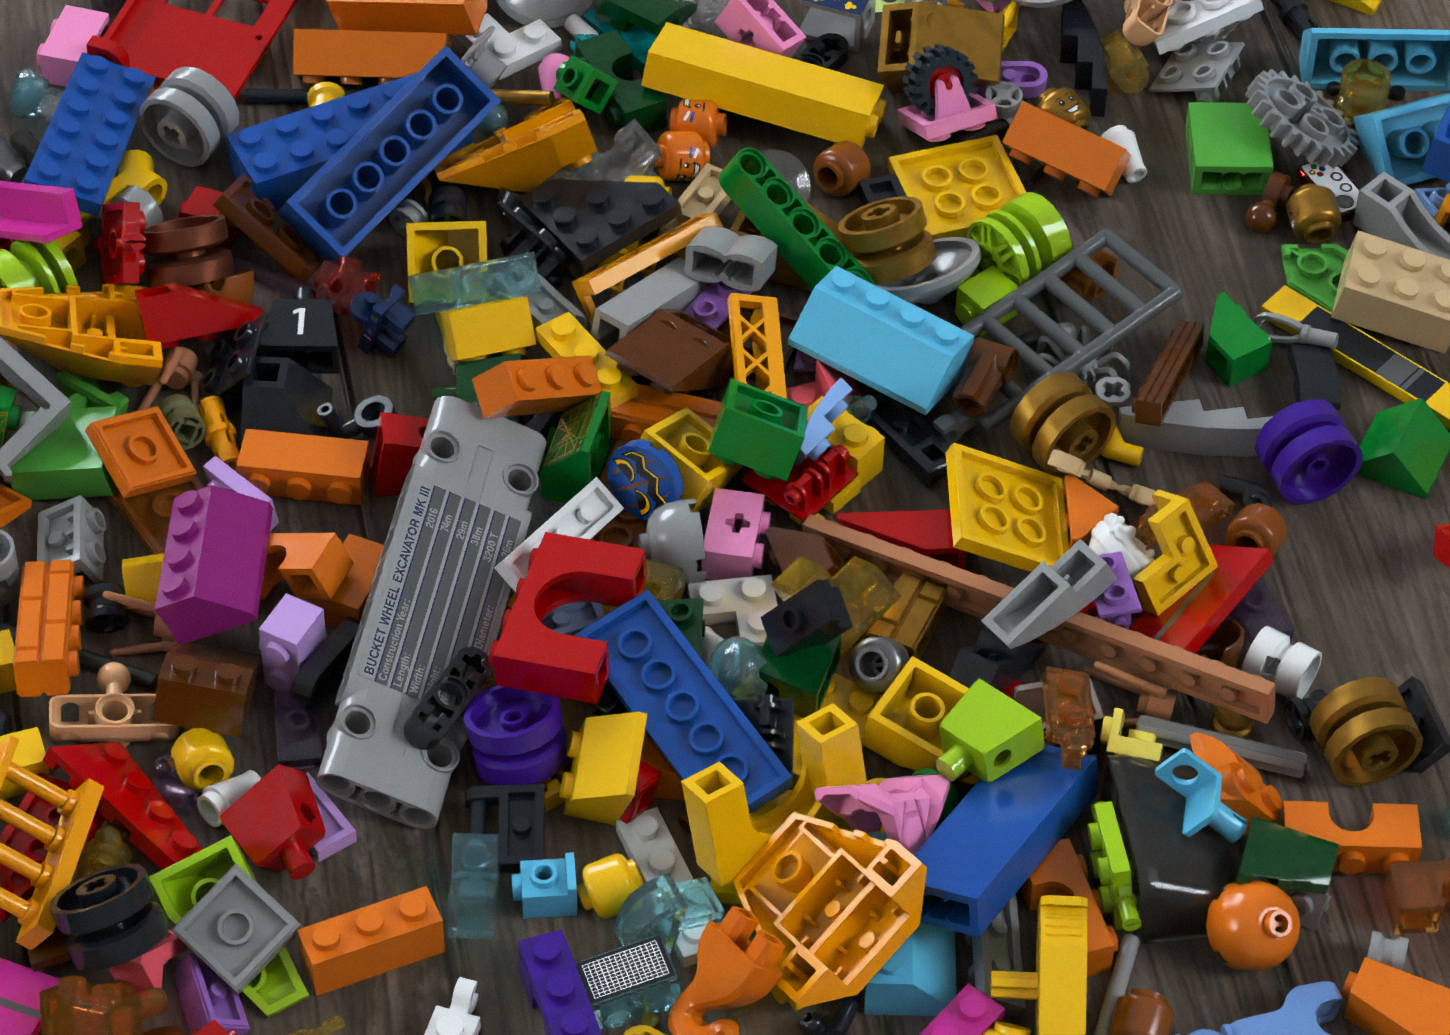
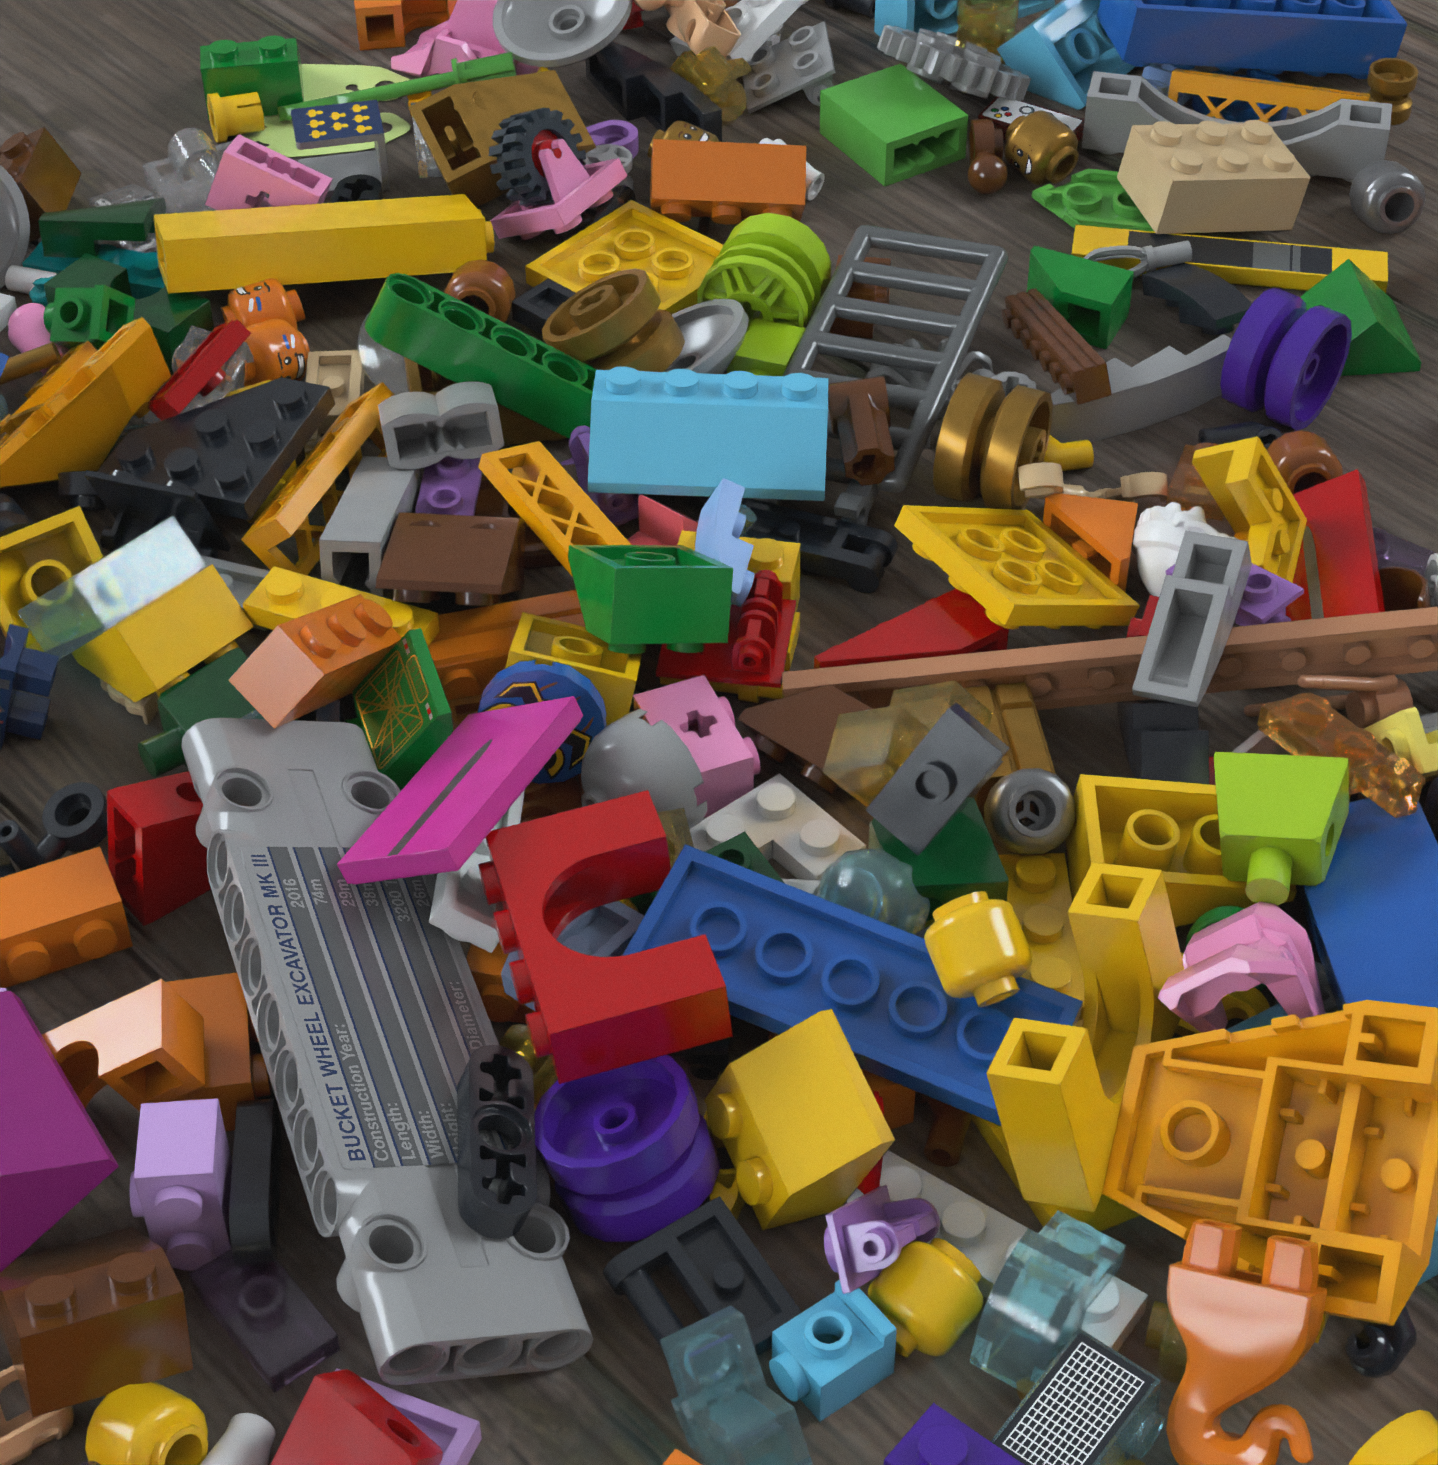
camera: 30 degrees left, 5 degrees down
(559, 501) = (461, 792): none -> dark pink tile
(598, 837) = (872, 1231): none -> medium lavender hinge
(615, 156) = (200, 371): none -> red plate
(747, 720) = (978, 948): none -> yellow head

